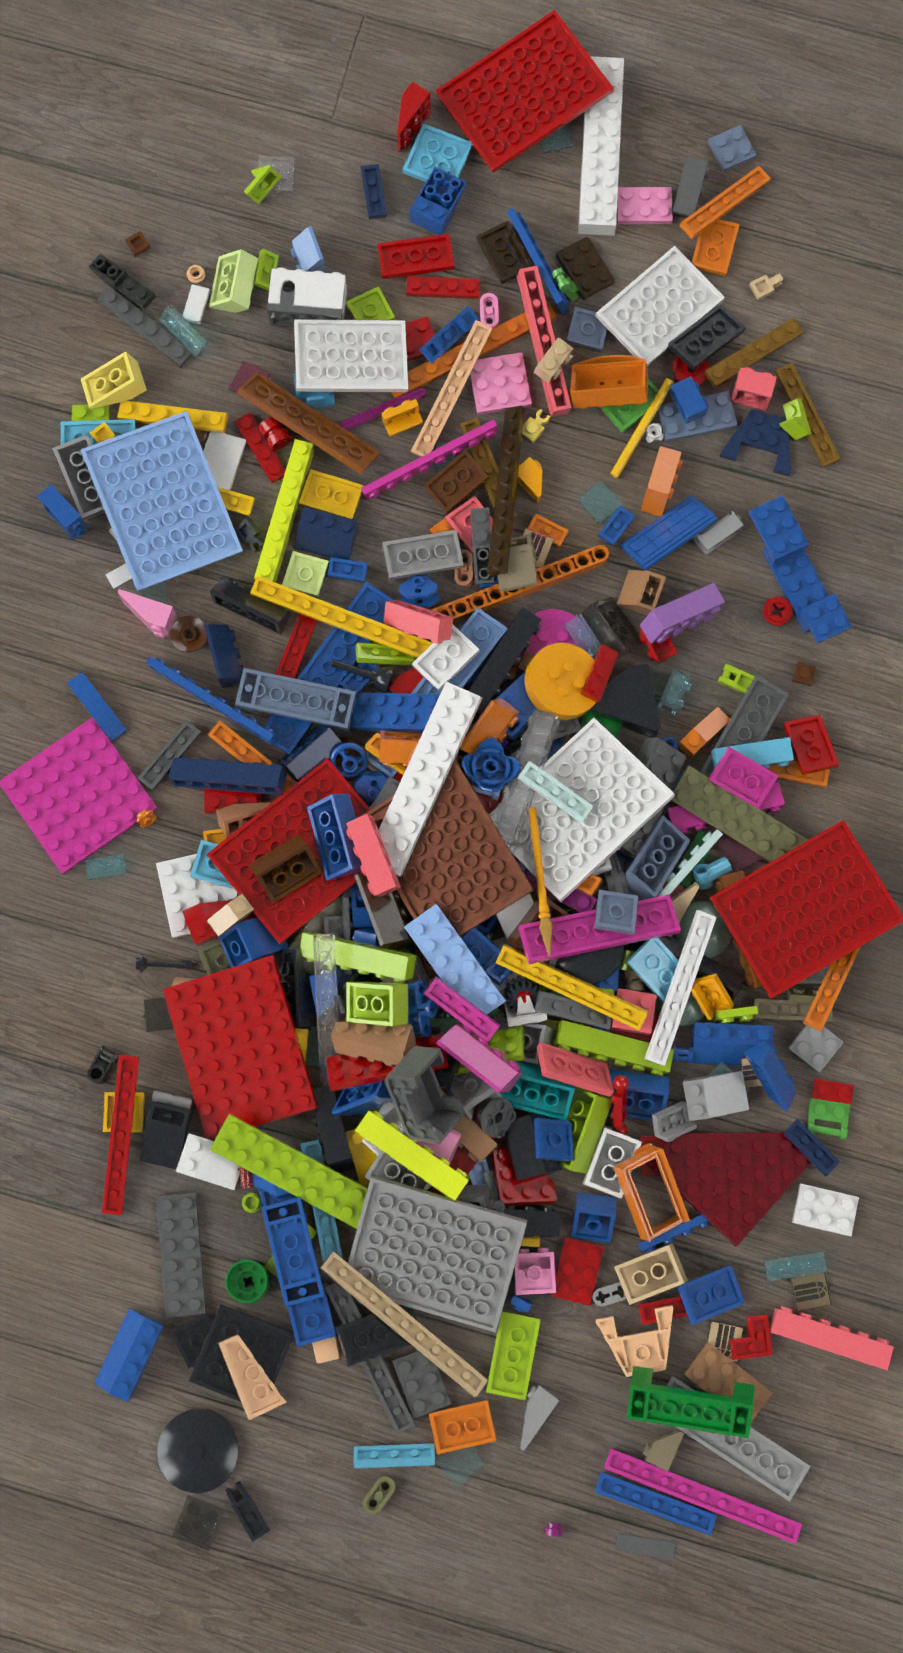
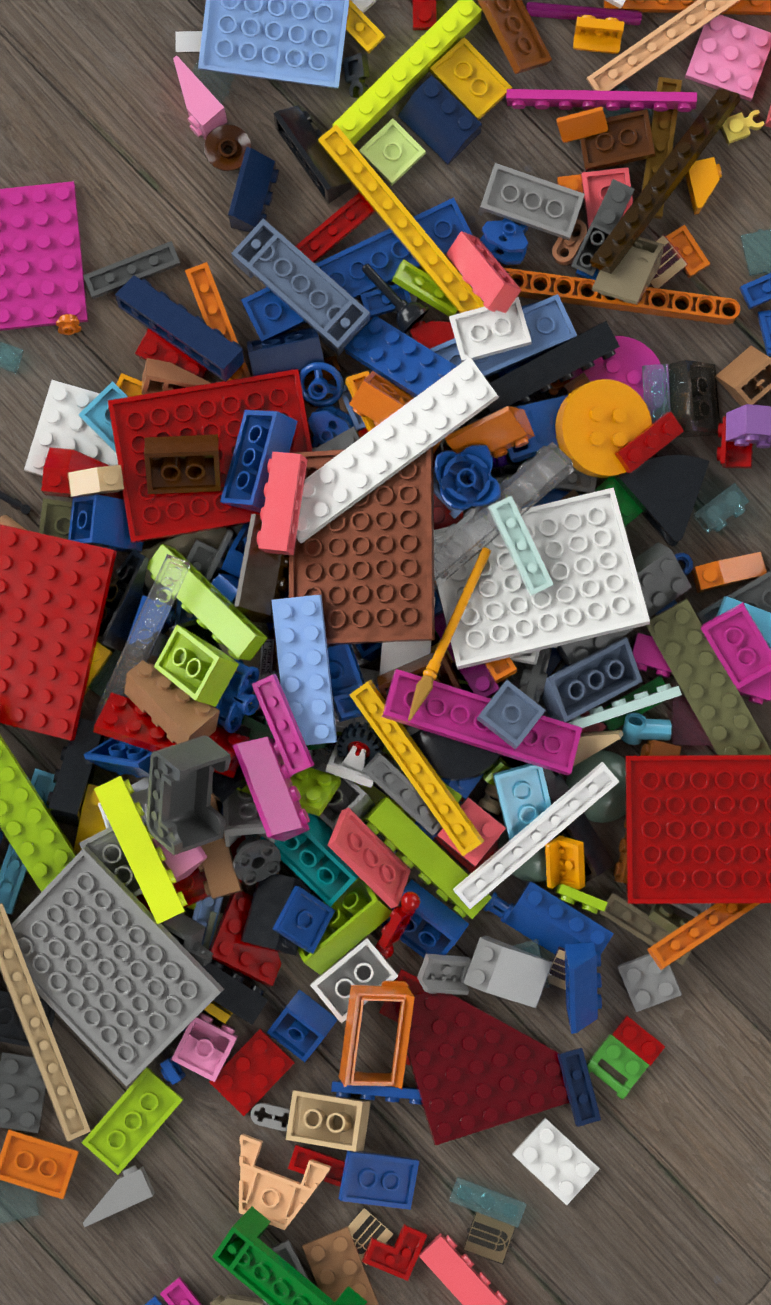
camera: 30 degrees right, 5 degrees up
(97, 706) = (84, 173): blue slope -> none
(218, 704) = (215, 242): blue plate -> none
(347, 570) = (441, 172): blue plate -> none
(427, 483) = (582, 124): none -> orange slope

